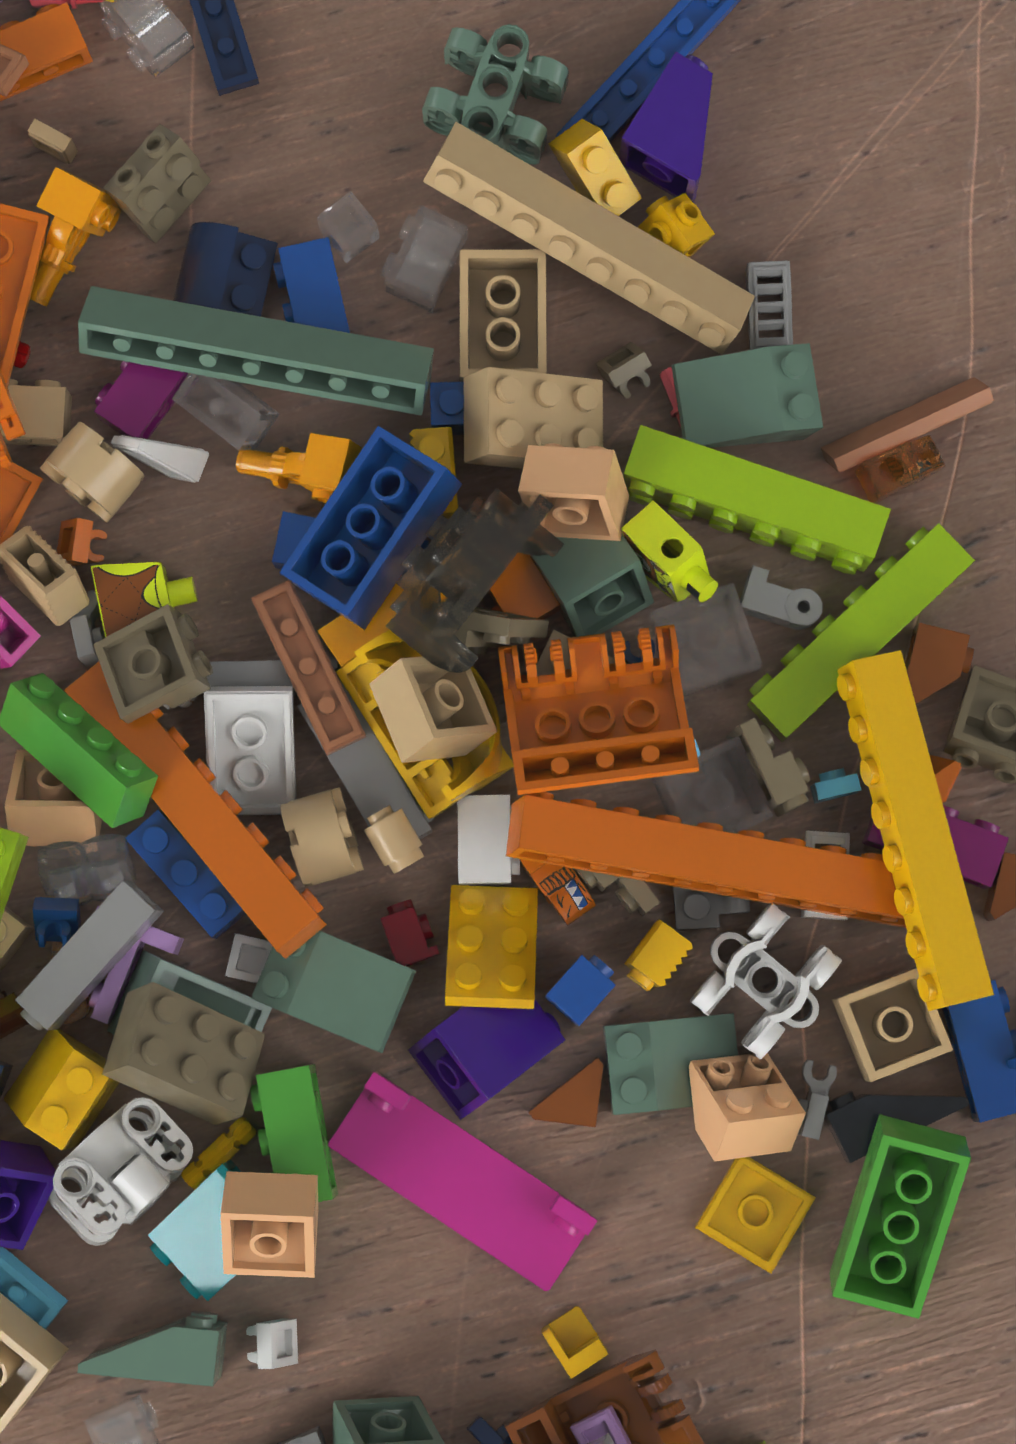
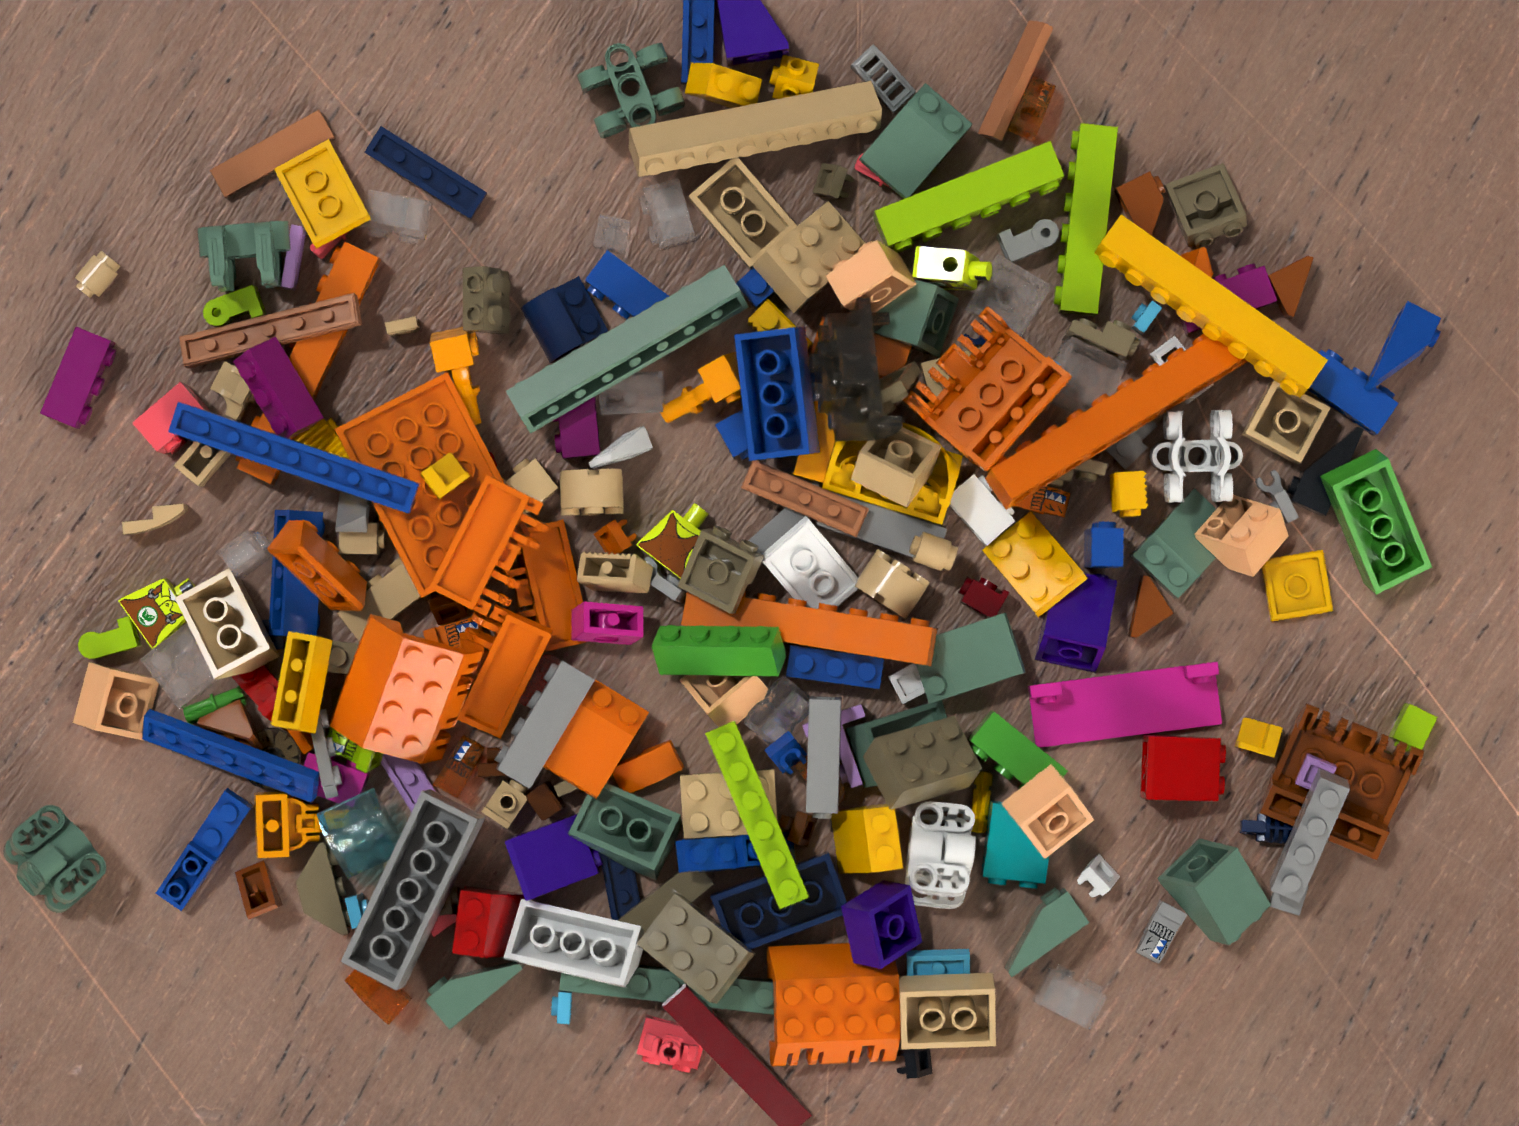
camera: 45 degrees left, 5 degrees up
(462, 1304) = (1182, 768): none -> red slope

